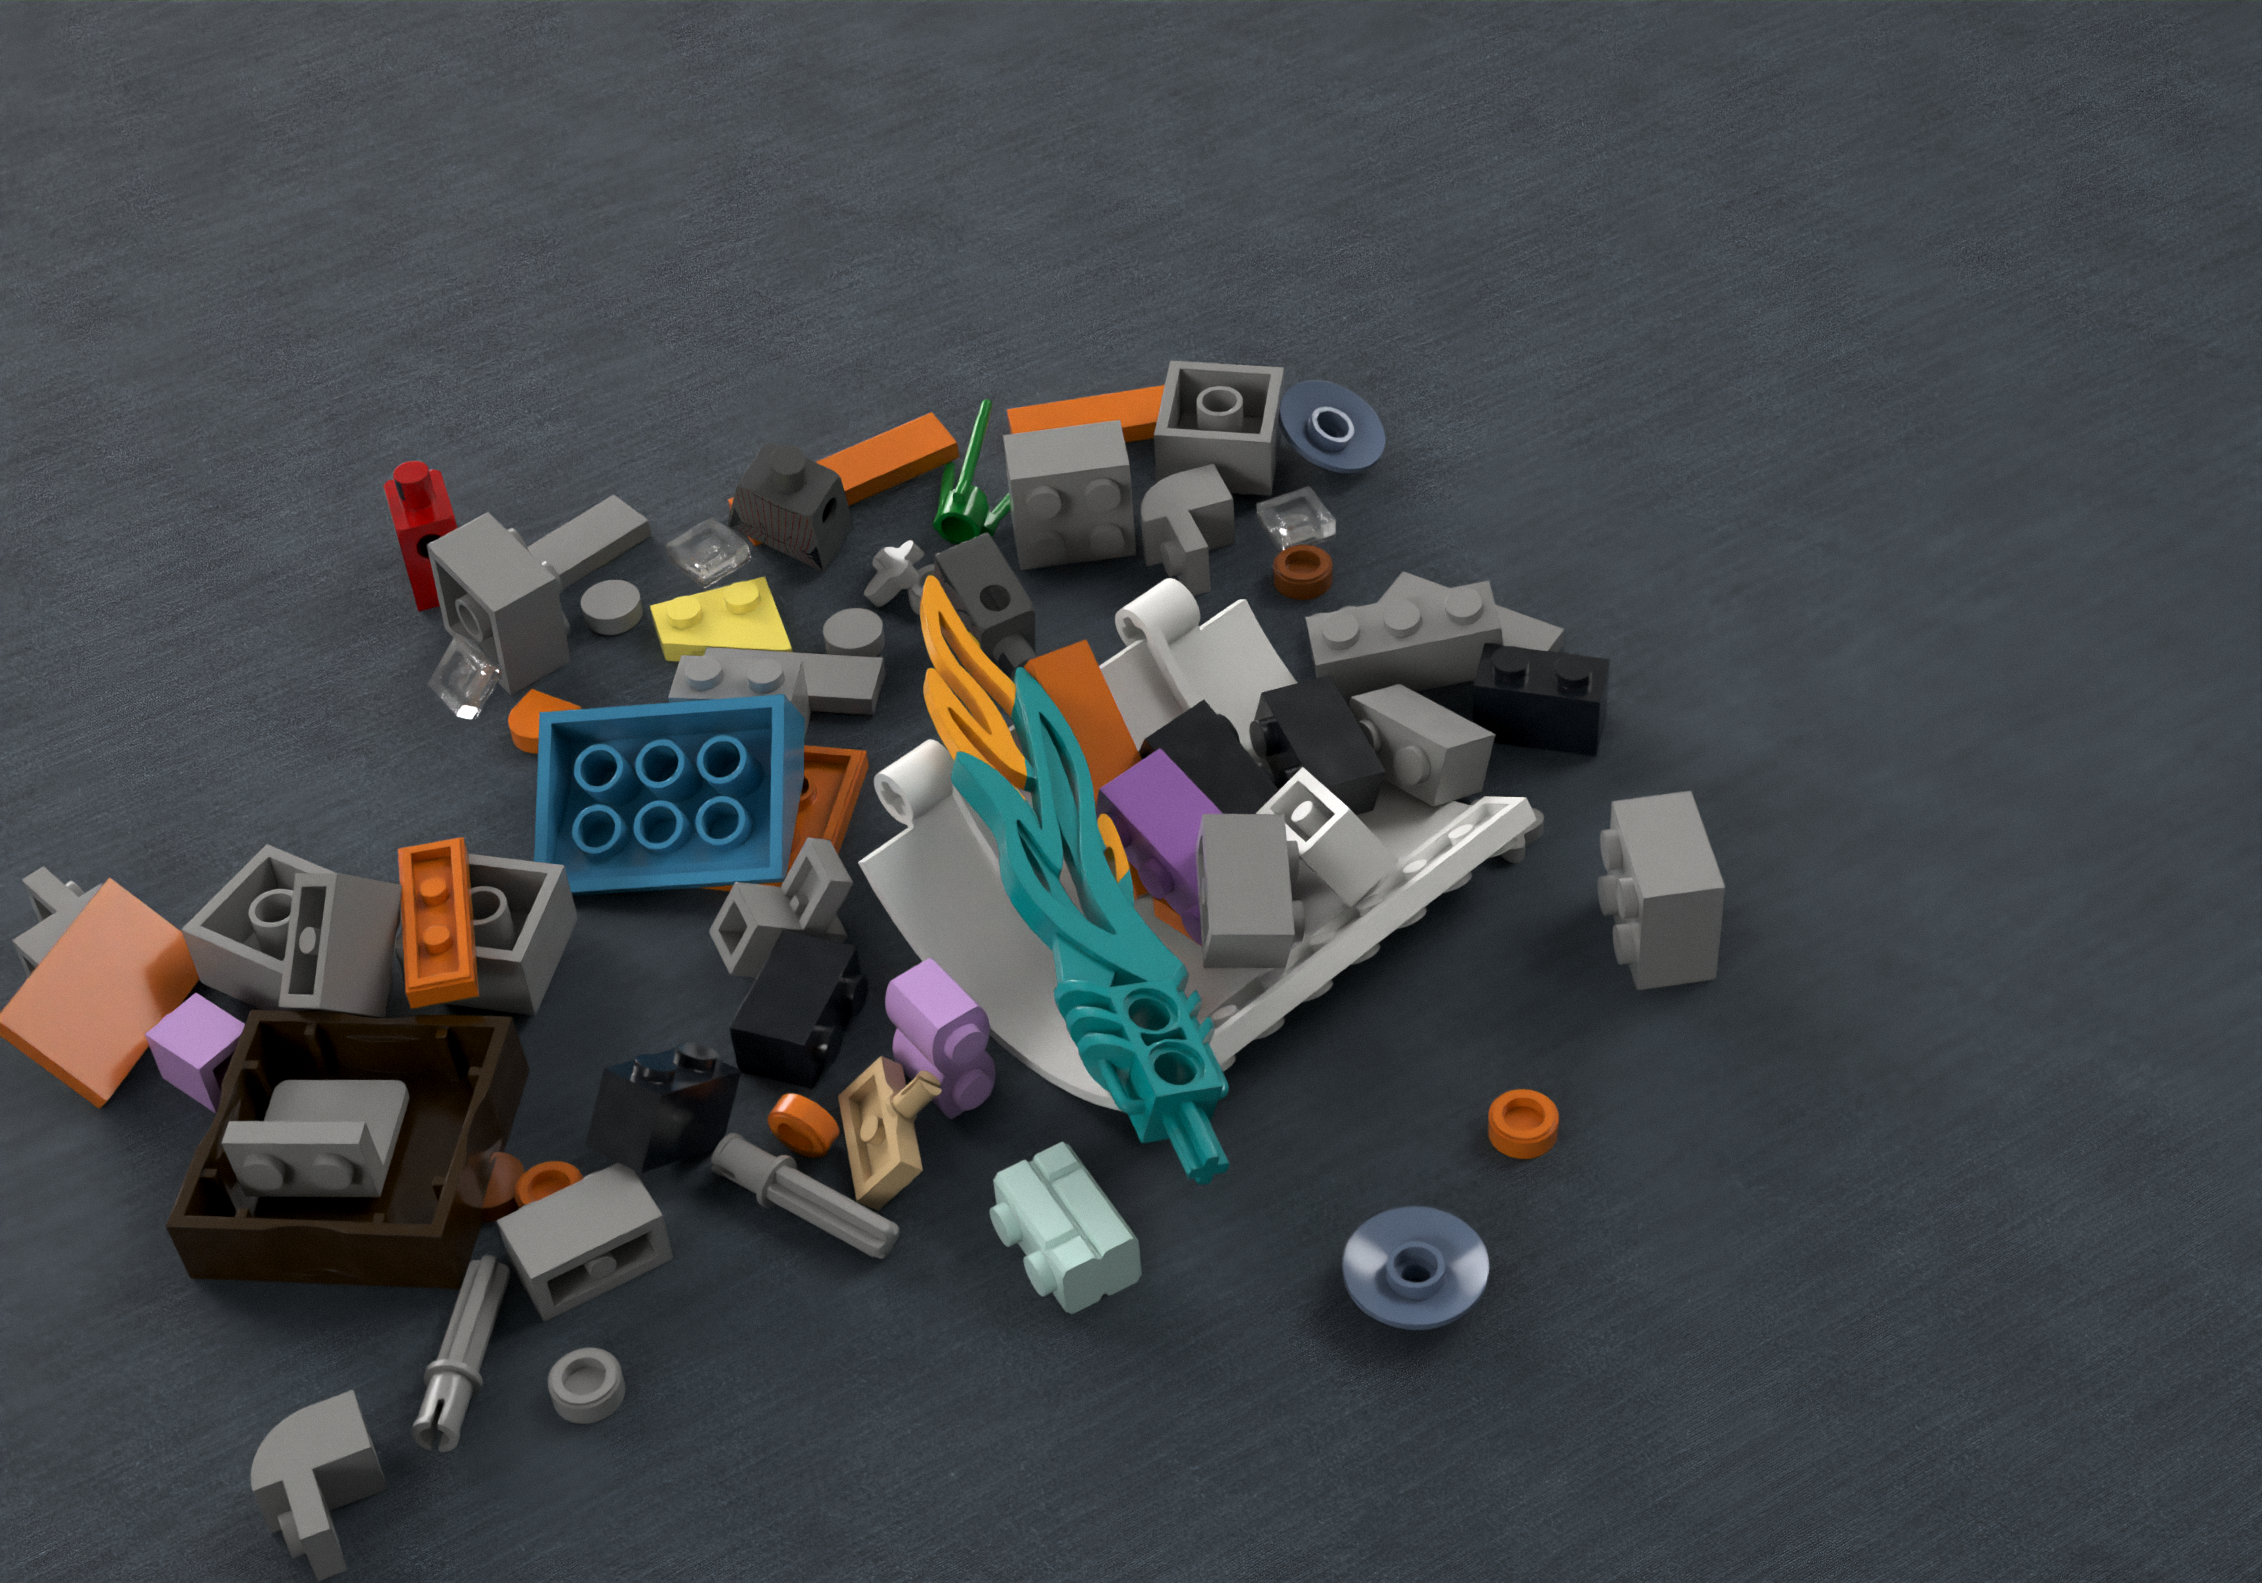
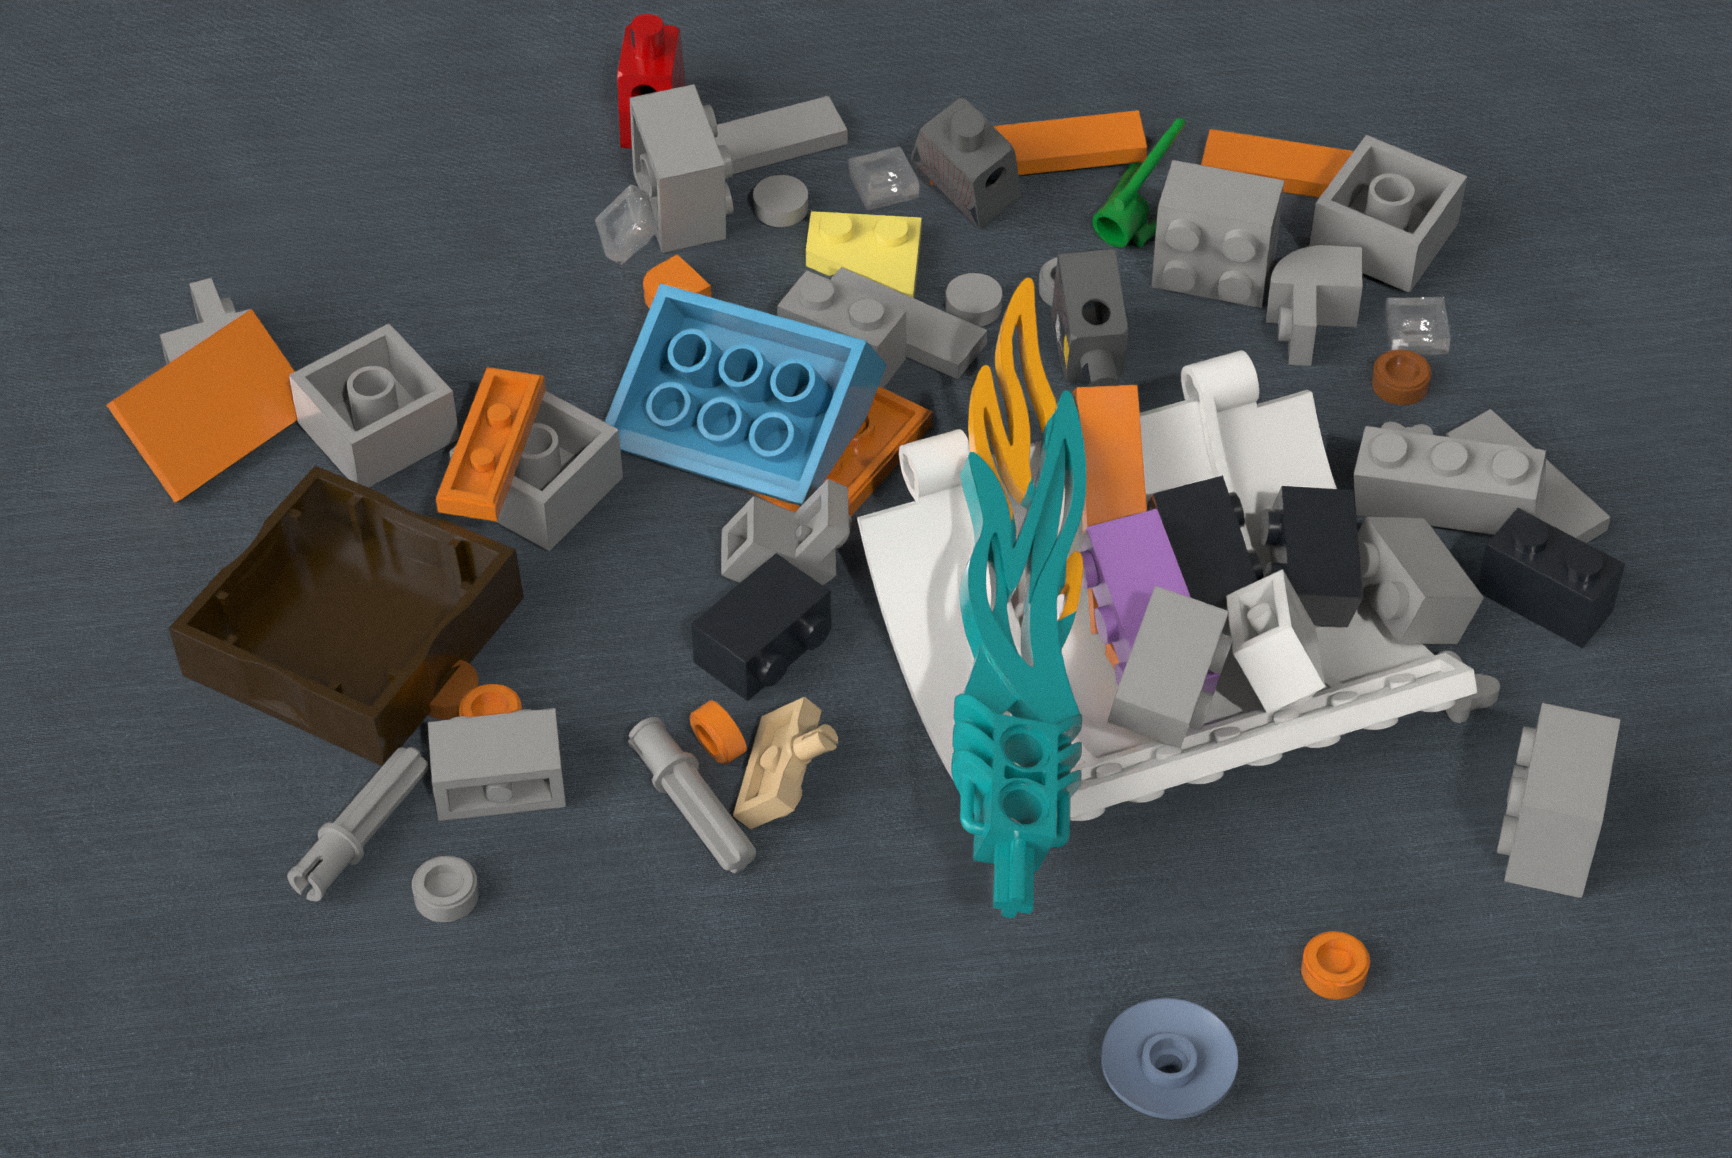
camera: 20 degrees right, 5 degrees up
(196, 1048) = (264, 476): lavender brick -> none
(312, 1467) = (195, 874): light grey brick -> none
(319, 1139) = (326, 596): light grey bracket -> none
(340, 944) = (406, 436): light grey brick -> none
(663, 1107) = (604, 675): black brick -> none
(893, 573) = (1034, 252): light grey piece -> none
(943, 1034) = (861, 699): lavender brick -> none
(1066, 1229) = (891, 907): light aqua brick -> none
(1331, 426) = (1493, 246): sand blue dish -> none

